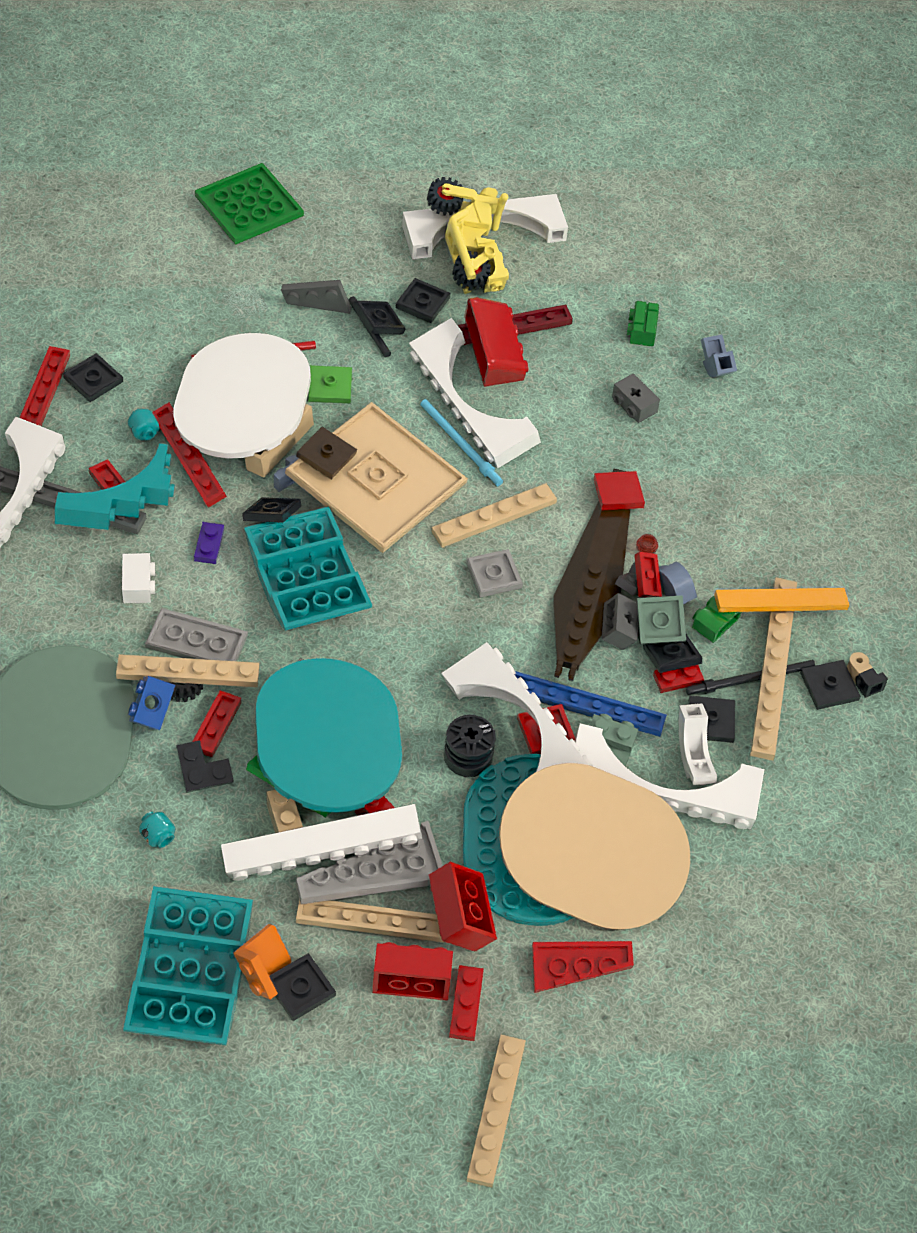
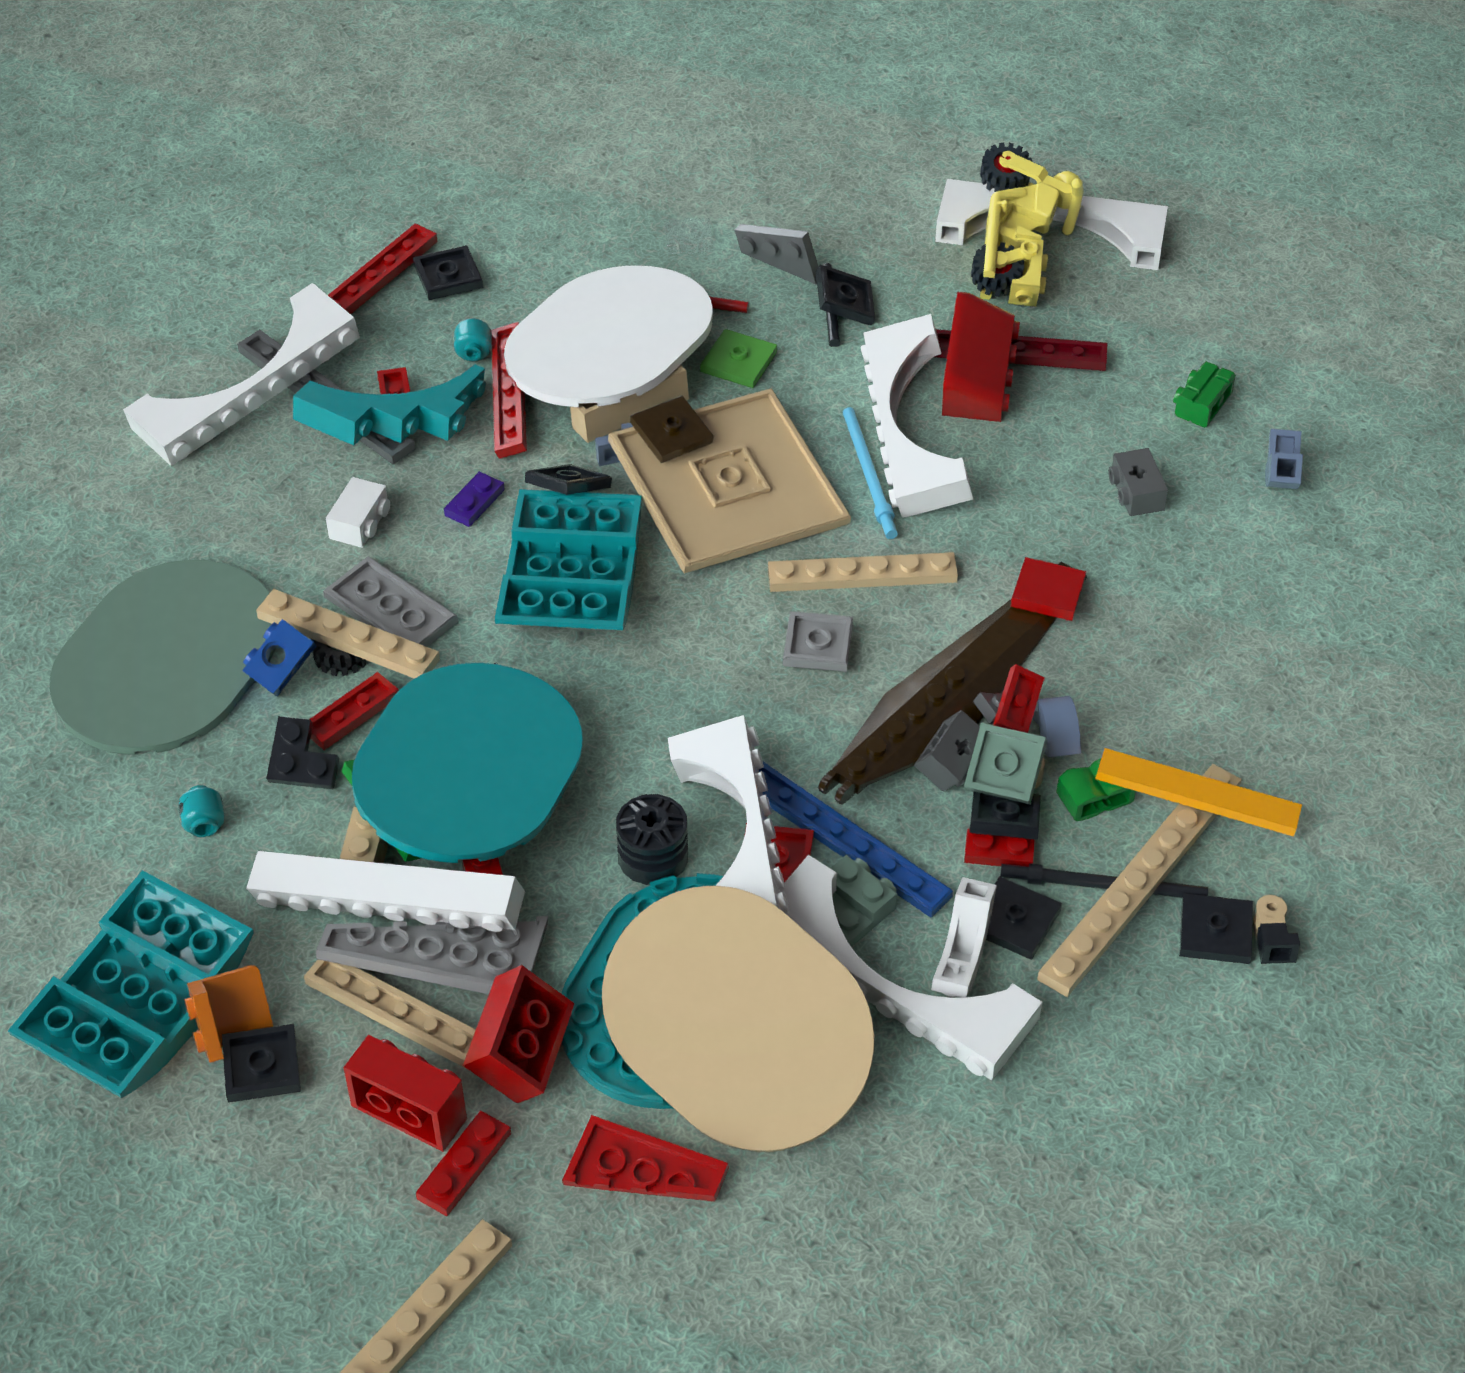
camera: 30 degrees right, 5 degrees down
(249, 203) = (760, 126): green plate -> none
(422, 300) = (917, 291): black plate -> none
(647, 543) = (1052, 667): clear red plate -> none

